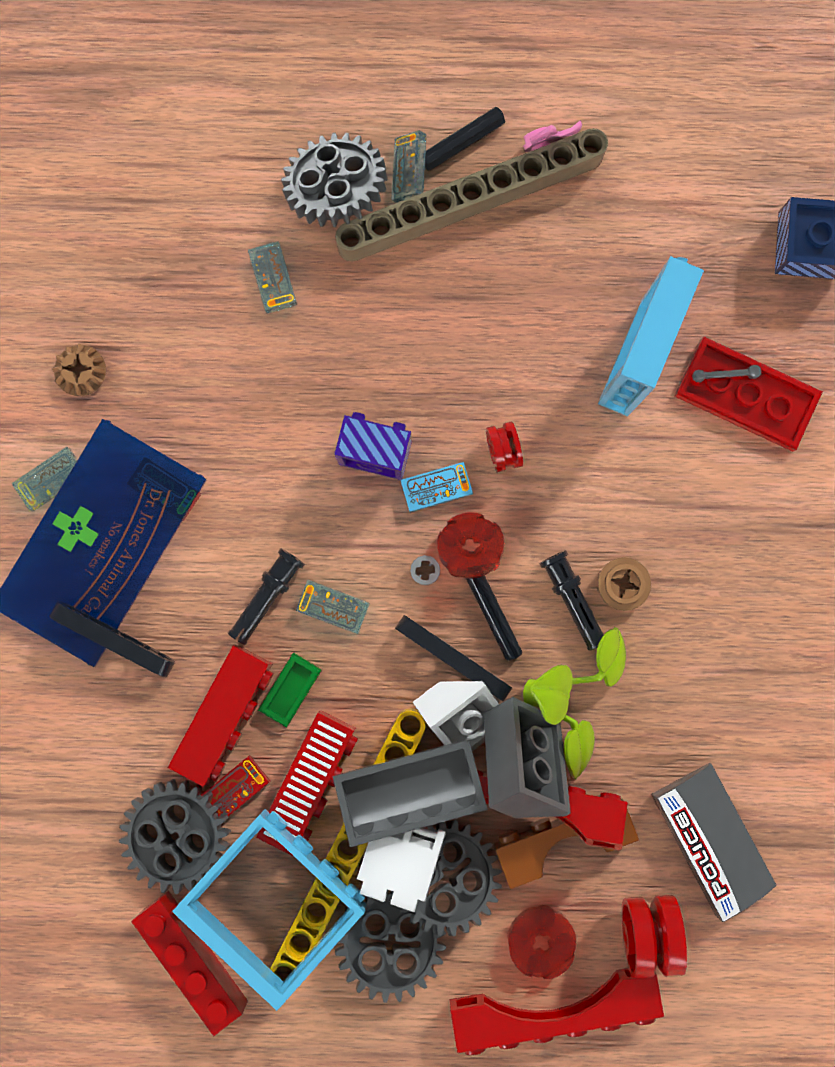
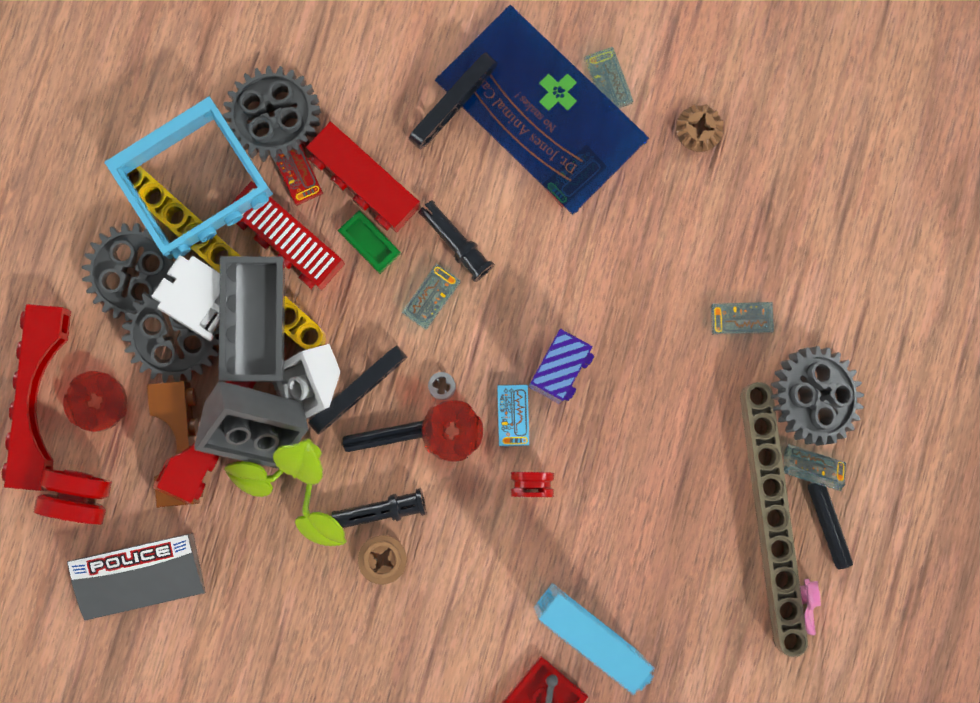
camera: 100 degrees right, 0 degrees up
(191, 964) = (162, 101): red brick -> none

